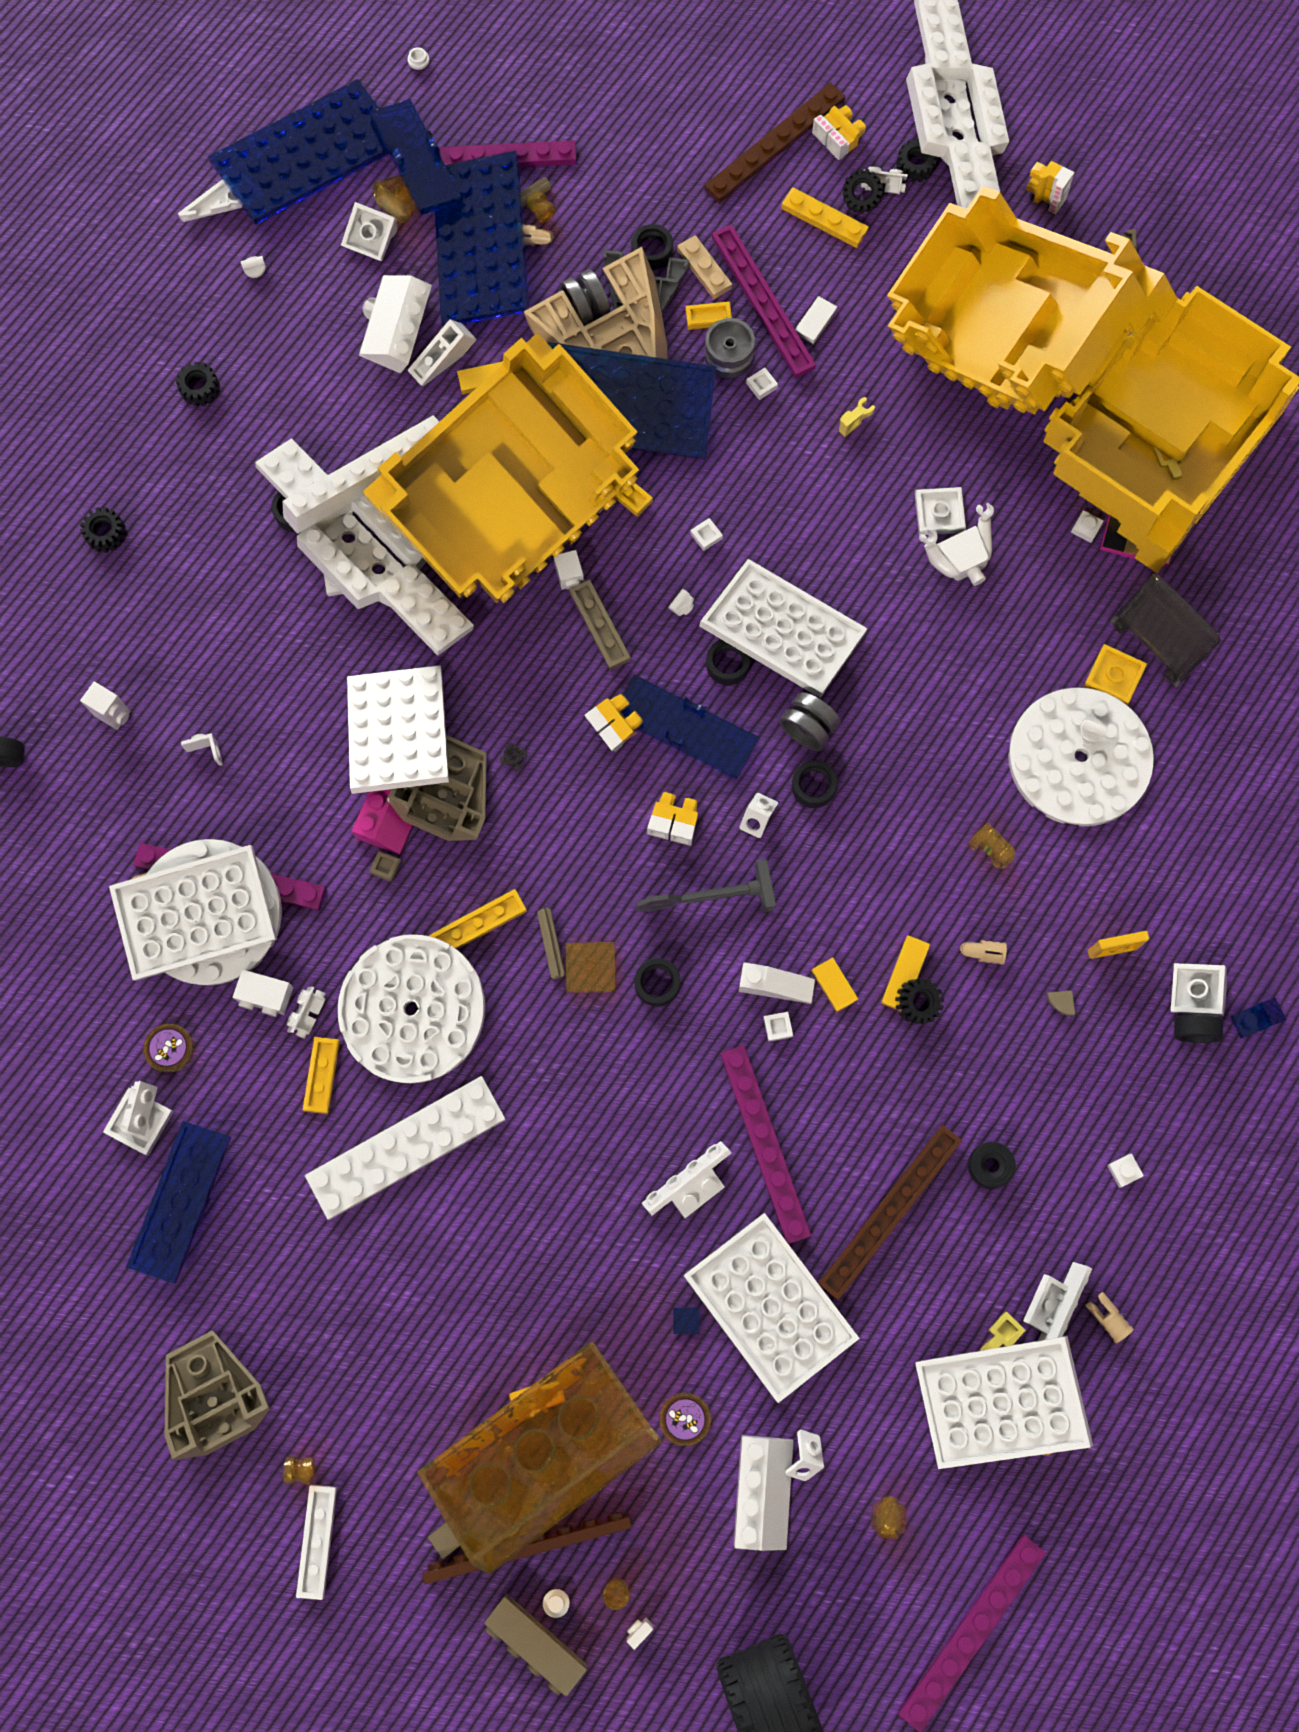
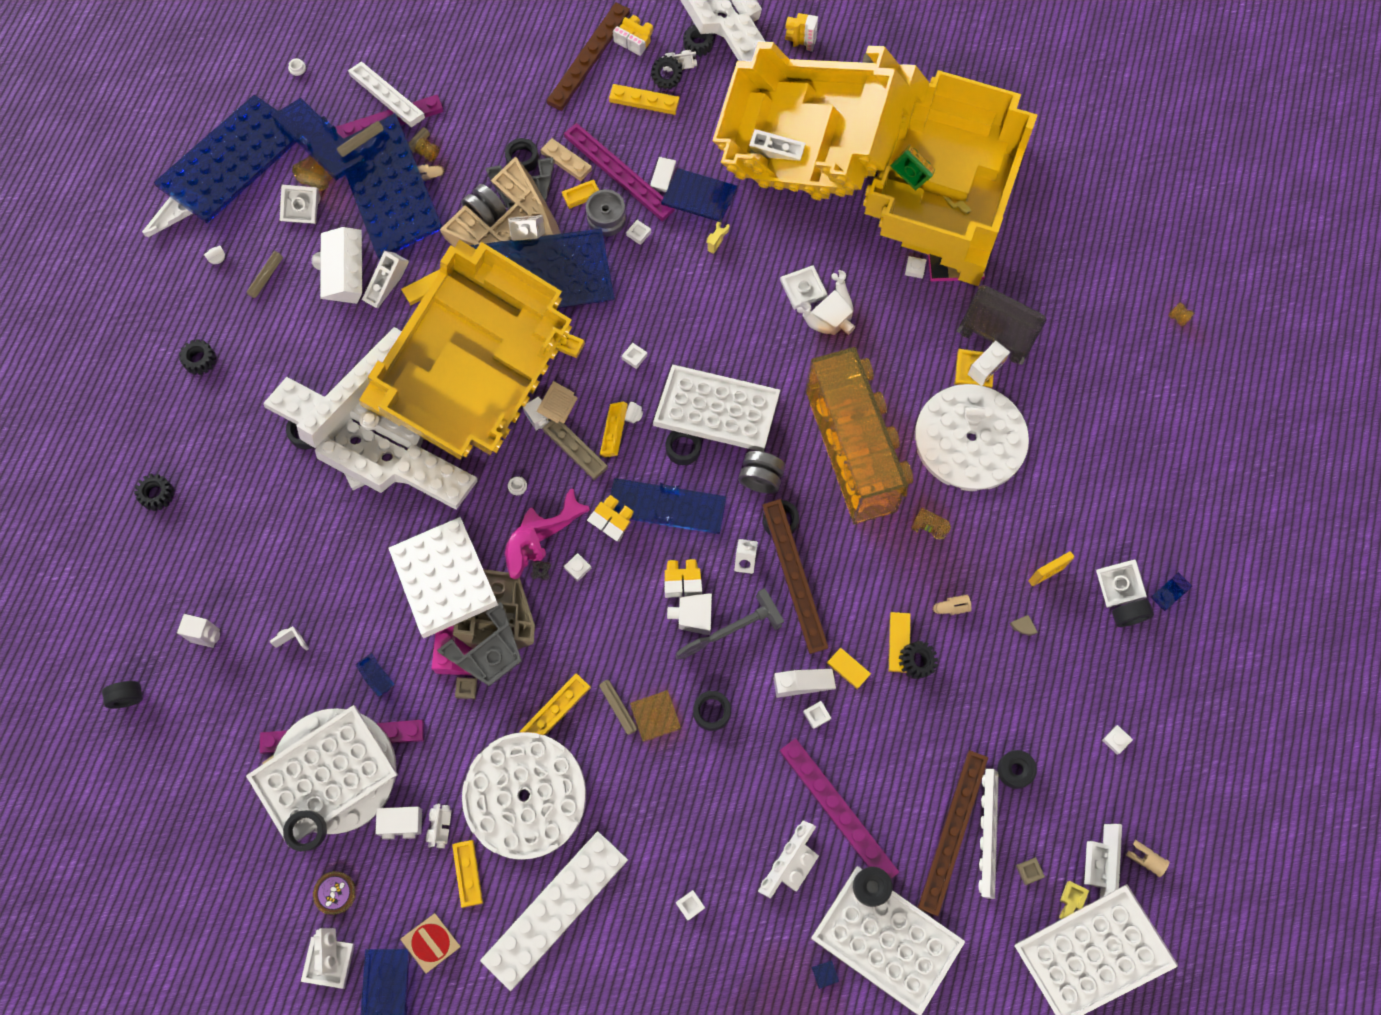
camera: 20 degrees left, 5 degrees down
(140, 956) = (289, 825): none -> black tyre
(255, 1137) = (430, 943): none -> piece
(286, 818) = (374, 675): none -> clear blue slope
(304, 306) = (264, 274): none -> dark tan axle
(369, 519) = (369, 420): none -> white plate
(423, 839) = (491, 657): none -> dark grey wing
(464, 171) = (360, 138): none -> dark tan axle
(513, 123) = (386, 94): none -> white plate
(518, 649) = (517, 486): none -> white plate
(520, 707) = (526, 539): none -> dark pink piece
(557, 766) = (577, 567): none -> white plate
(558, 1193) = (690, 905): none -> white plate
(596, 564) = (557, 403): none -> tan window
(624, 338) = (526, 227): none -> white torso
(652, 616) = (613, 429): none -> yellow tile
(673, 863) = (693, 613): none -> white torso
(787, 1241) = (884, 886): none -> black tyre
(806, 857) = (795, 577): none -> reddish brown plate
(851, 358) = (699, 195): none -> clear blue piece
(928, 1236) = (989, 840): none -> white plate
(937, 709) = (856, 435): none -> clear yellow brick
(963, 324) = (776, 146): none -> white slope
(965, 1286) = (1030, 871): none -> dark tan tile
(1124, 400) = (913, 167): none -> green slope
(1133, 672) = (988, 363): none -> white brick

